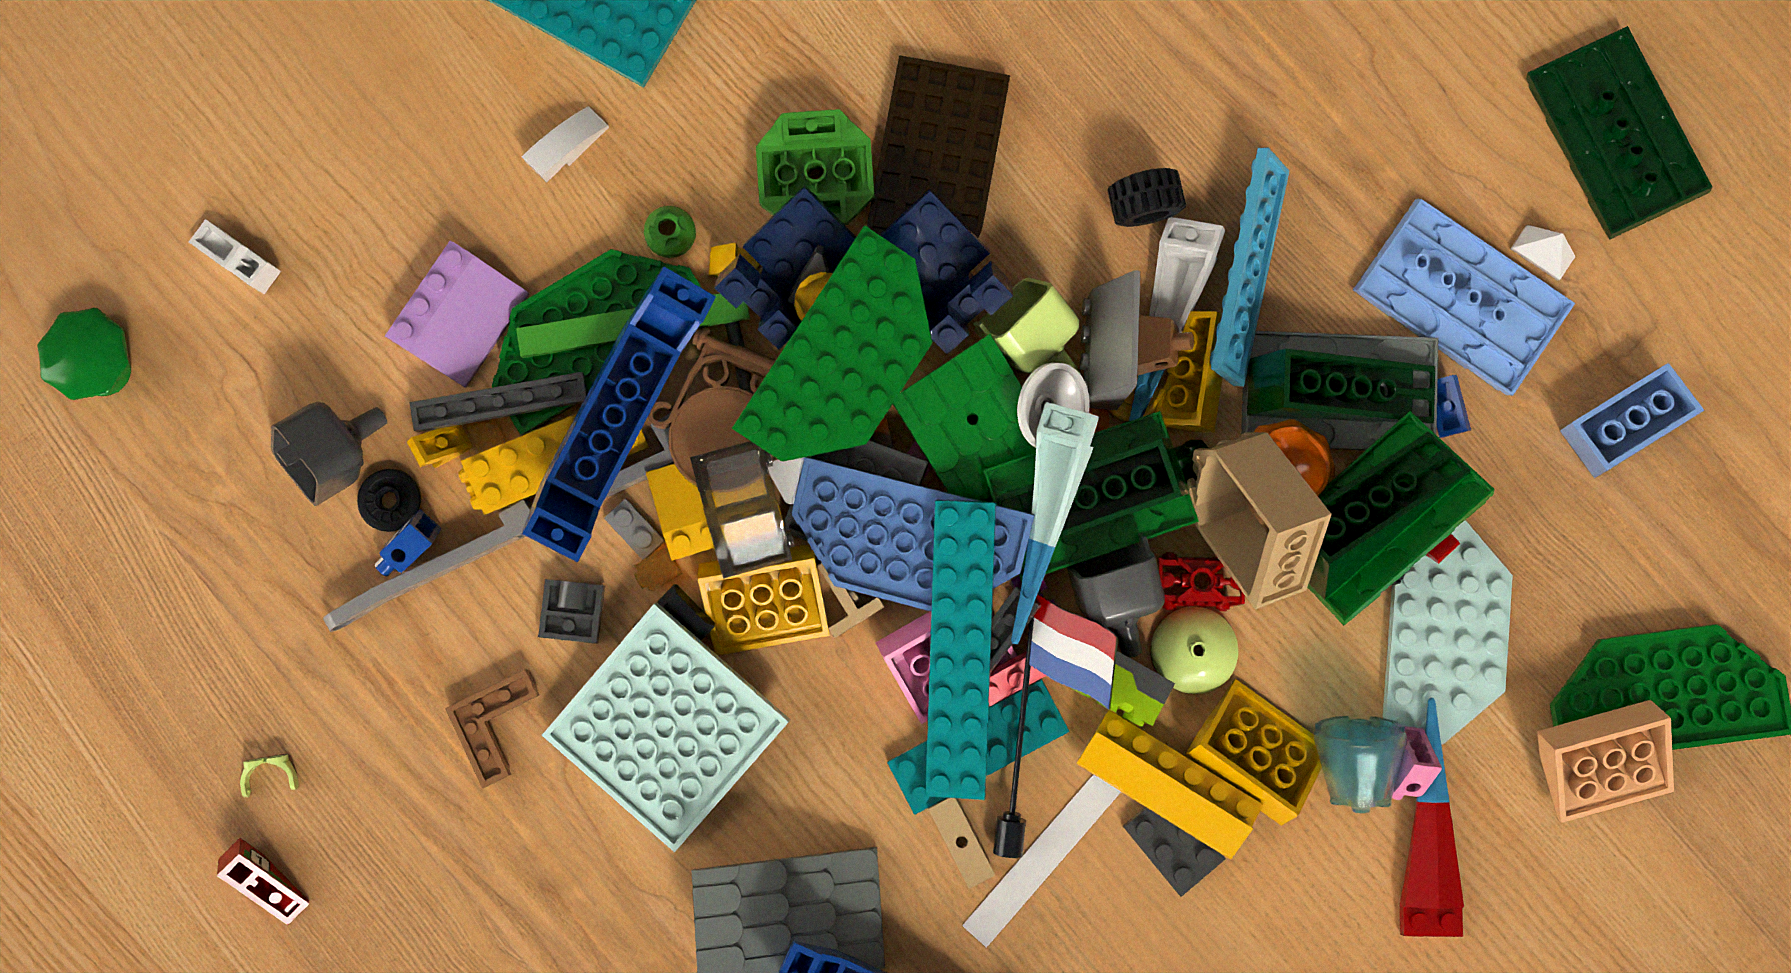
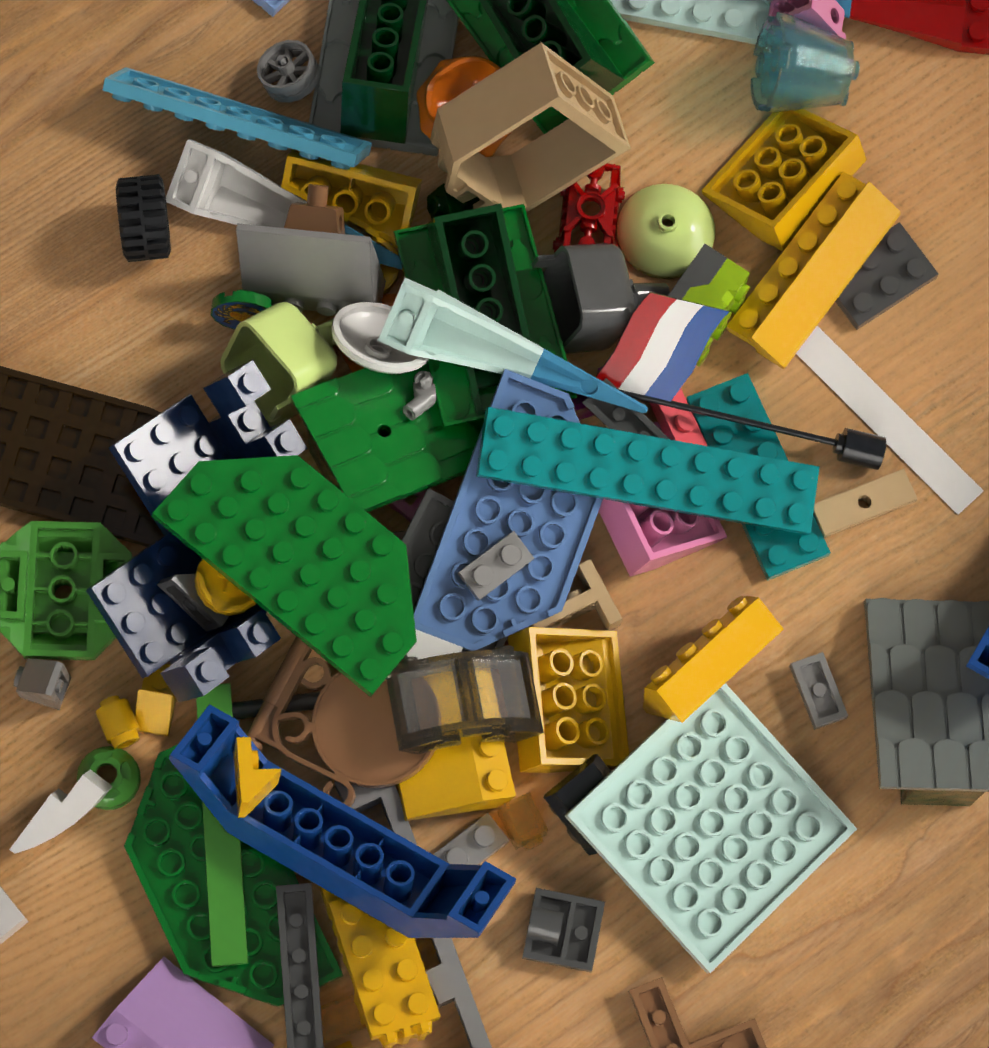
camera: 90 degrees left, 10 degrees down
(631, 196) = (62, 811): none -> white slope
(649, 337) = (251, 782): none -> yellow slope
(713, 232) = (118, 722): none -> yellow brick
(738, 168) = (42, 682): none -> light grey slope
(791, 812) = (818, 690): none -> light grey plate
(793, 717) = (711, 659): none -> yellow slope
(862, 524) = (495, 565): none -> light grey plate
(1008, 450) = (424, 395): none -> light grey arm
(1075, 288) = (236, 308): none -> tile
(1311, 299) = (290, 85): none -> light grey wheel

